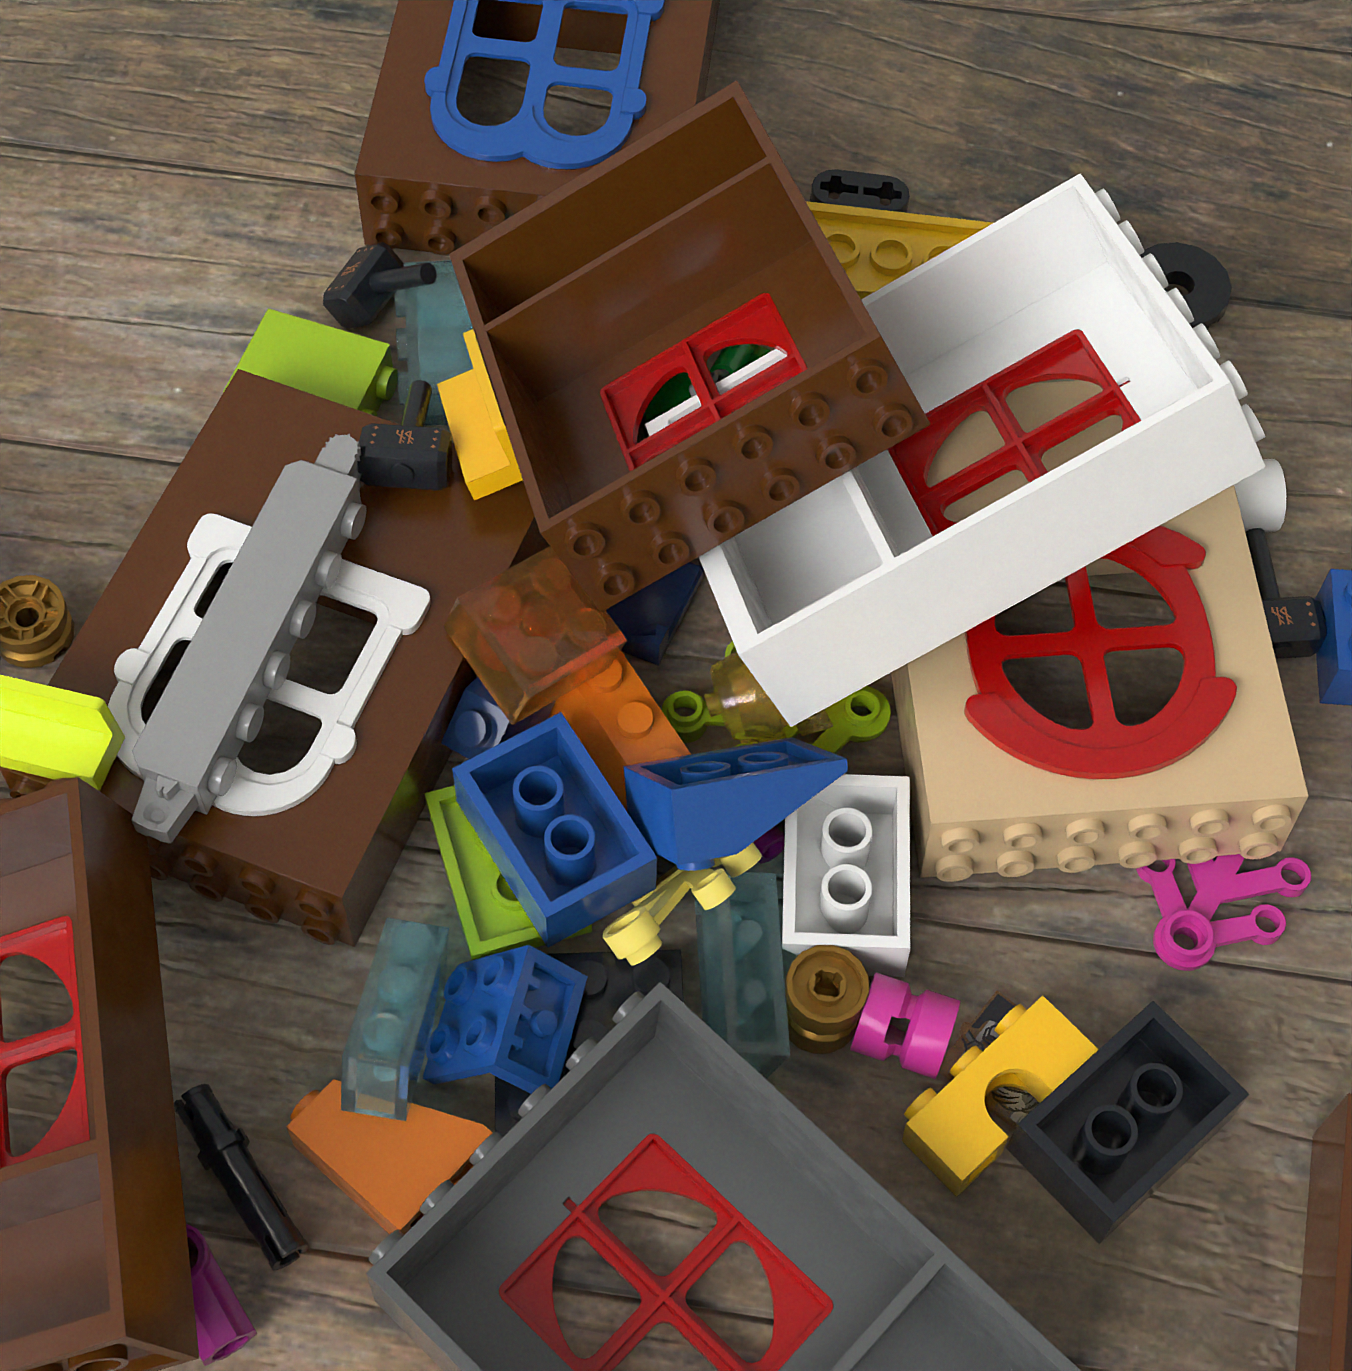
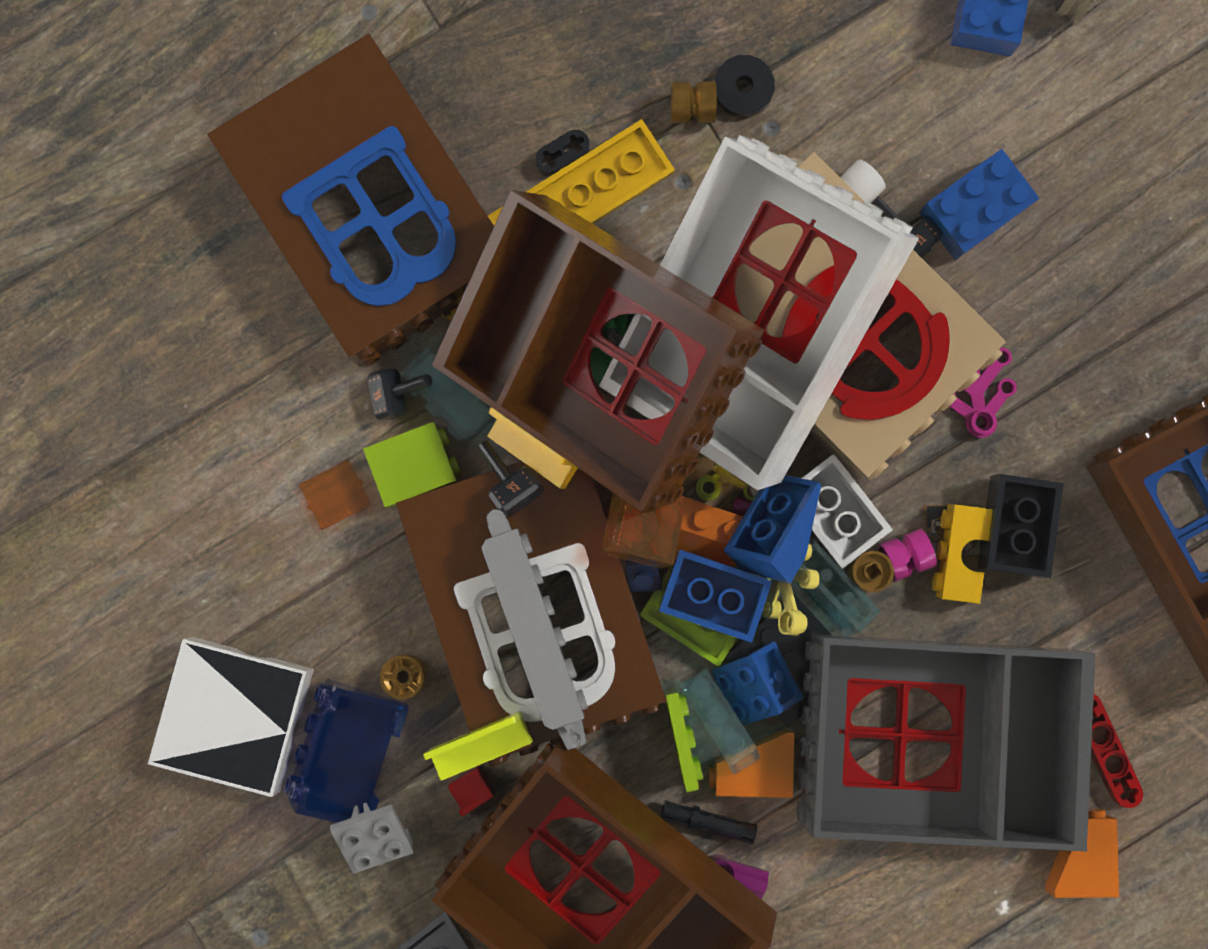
camera: 40 degrees left, 25 degrees up
(180, 356) = (335, 495): none -> clear orange piece
(314, 1000) = (683, 739): none -> lime plate

